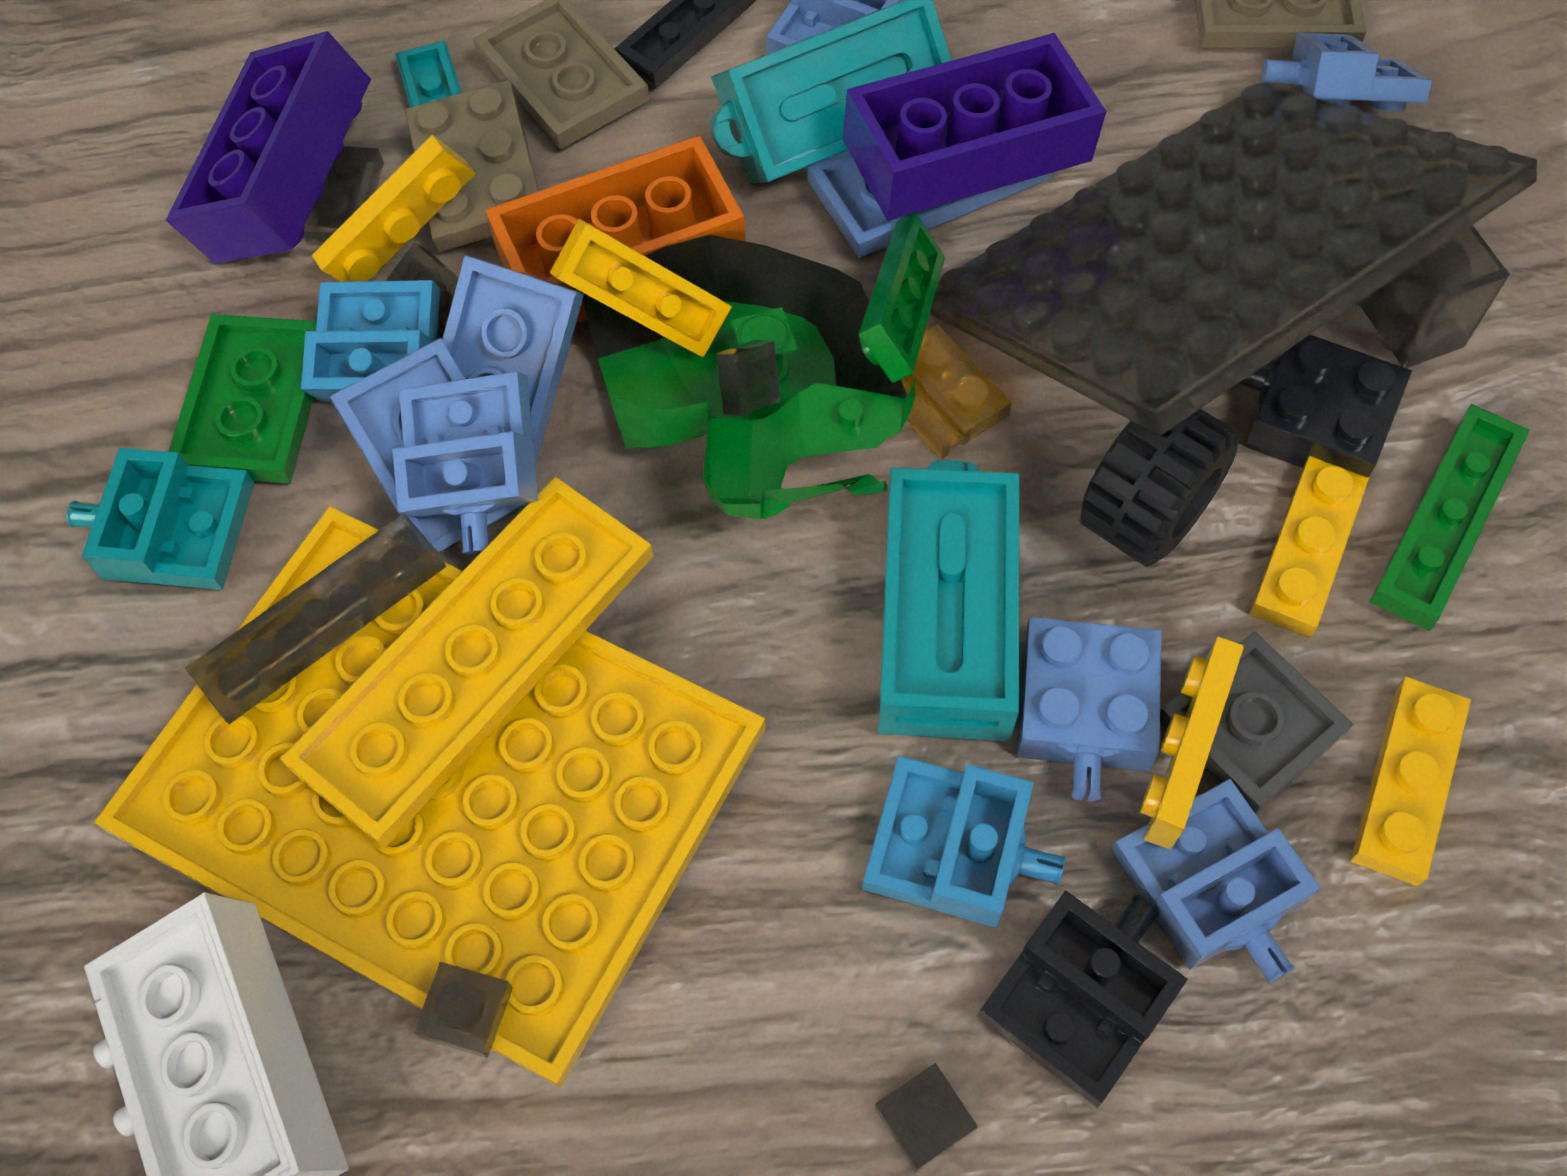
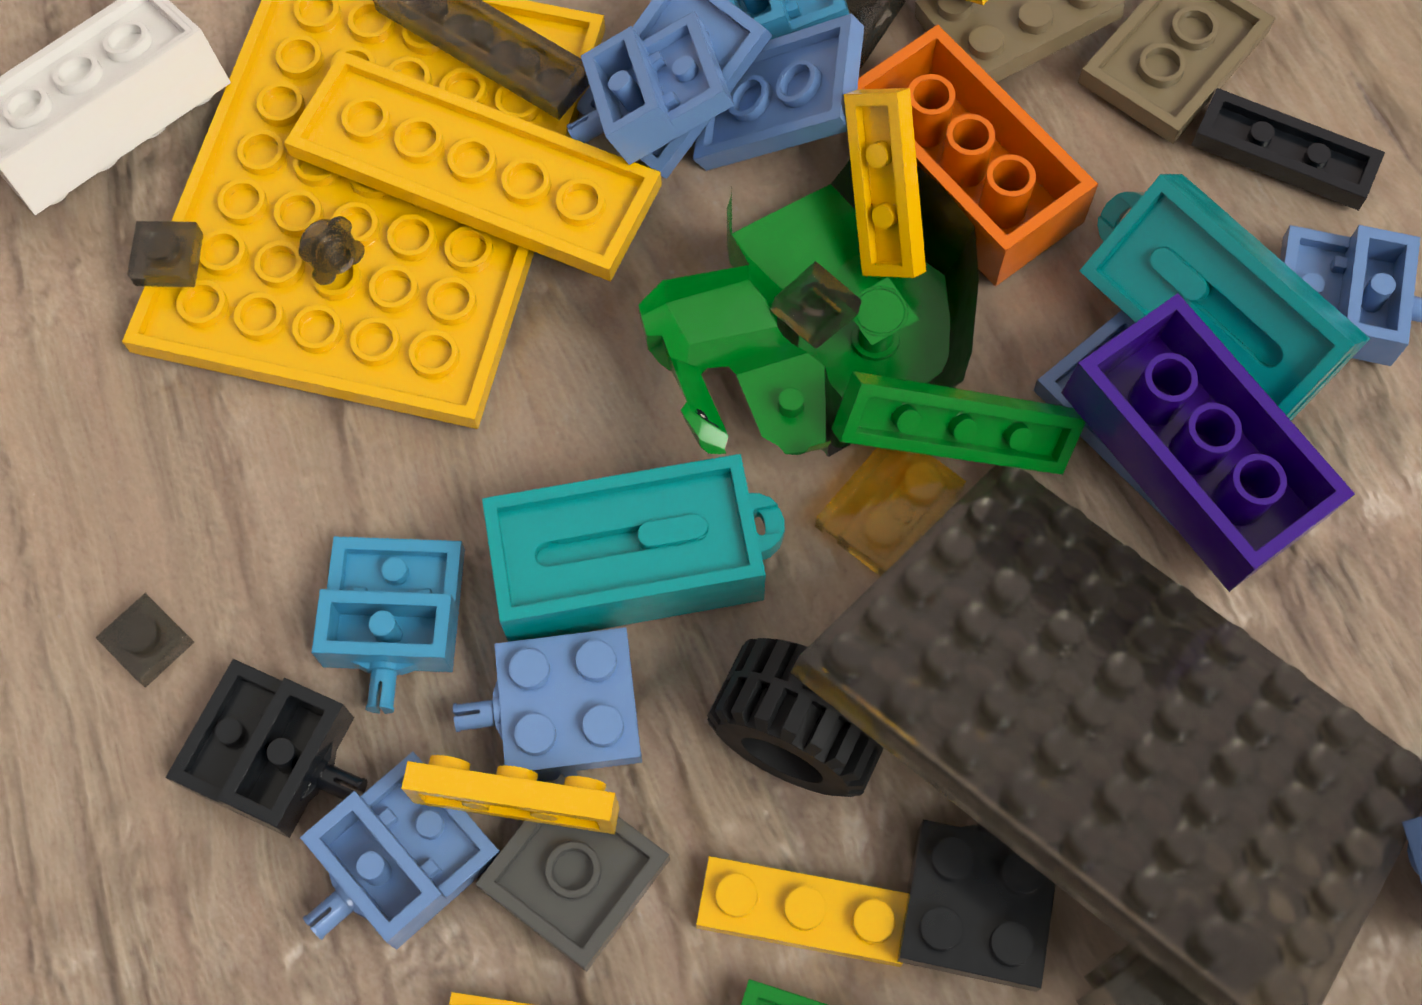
camera: 75 degrees right, 5 degrees up
(529, 816) = (330, 248): none -> clear smoke plate

